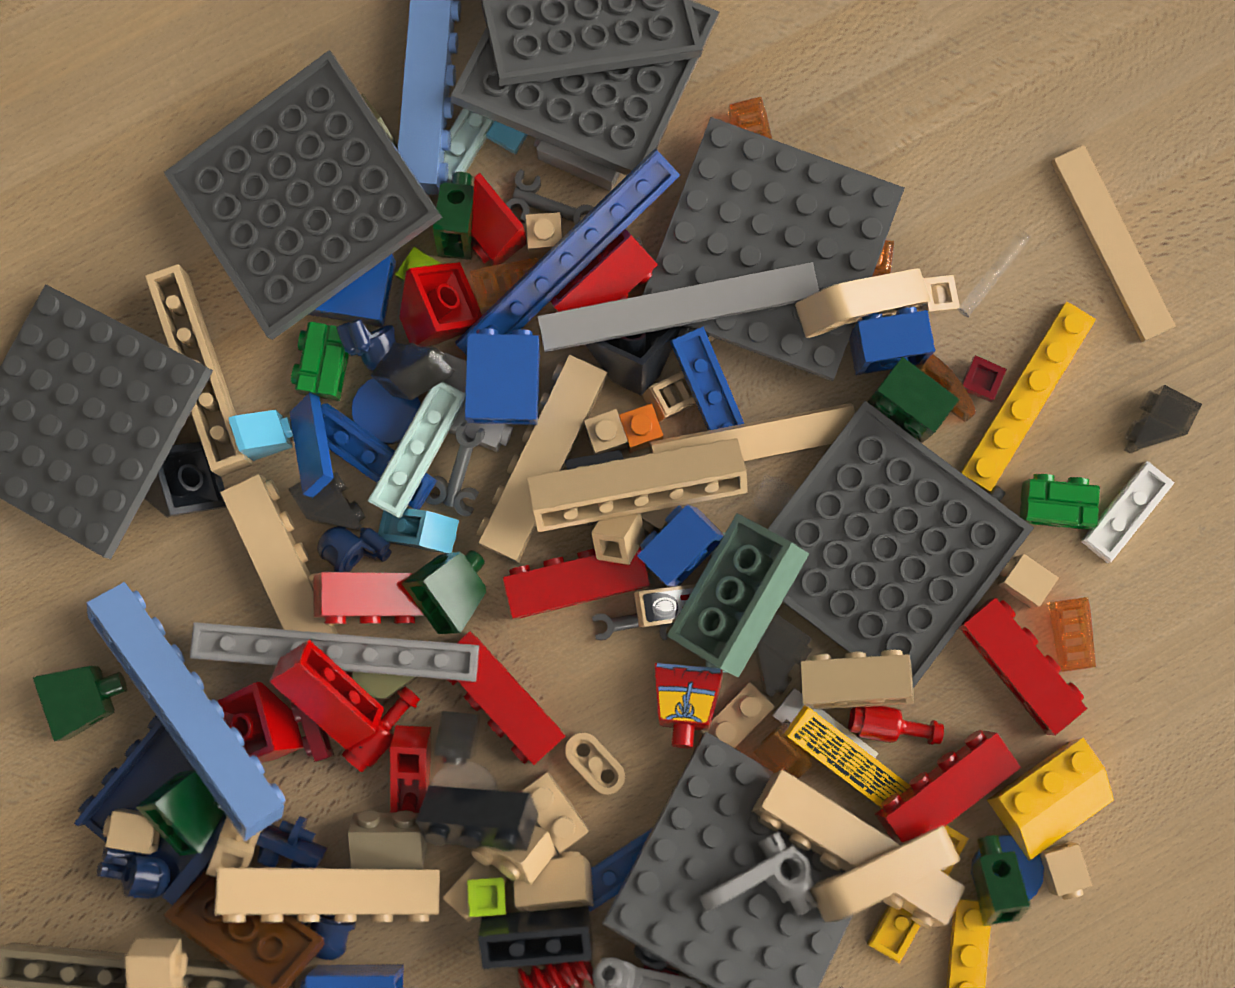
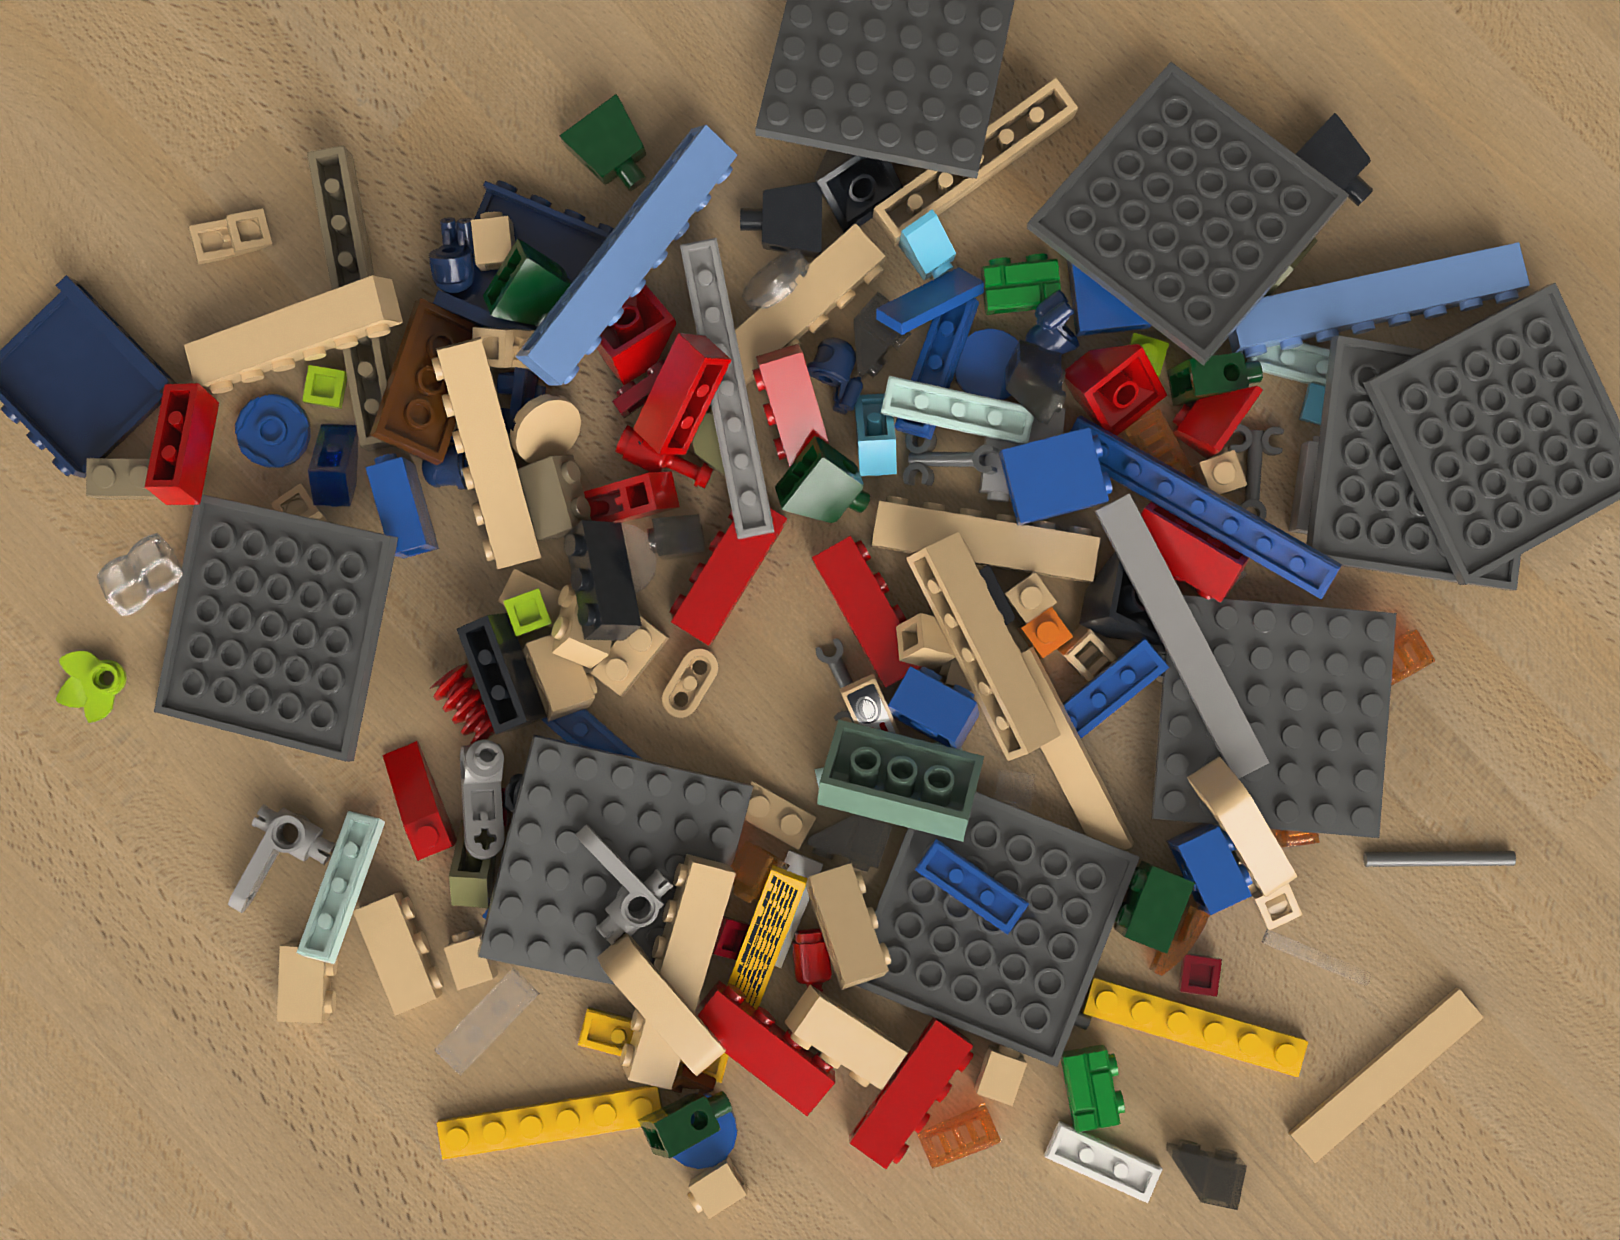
camera: 80 degrees right, 5 degrees up
(199, 552) = (788, 219): none -> black torso
(249, 579) = (775, 280): none -> clear tile
(293, 51) = (1338, 157): none -> black torso
(320, 831) = (545, 428): none -> tan tile
(686, 699) = (779, 757): torso -> none
(839, 791) = (730, 937): none -> dark red plate
(851, 558) = (972, 886): none -> blue tile
(935, 144) = (1439, 858): none -> dark grey bar
(957, 870) = (687, 1079): none -> reddish brown tile
(959, 713) = (844, 1039): none -> tan brick
(1053, 797) = (786, 1158): yellow slope -> none

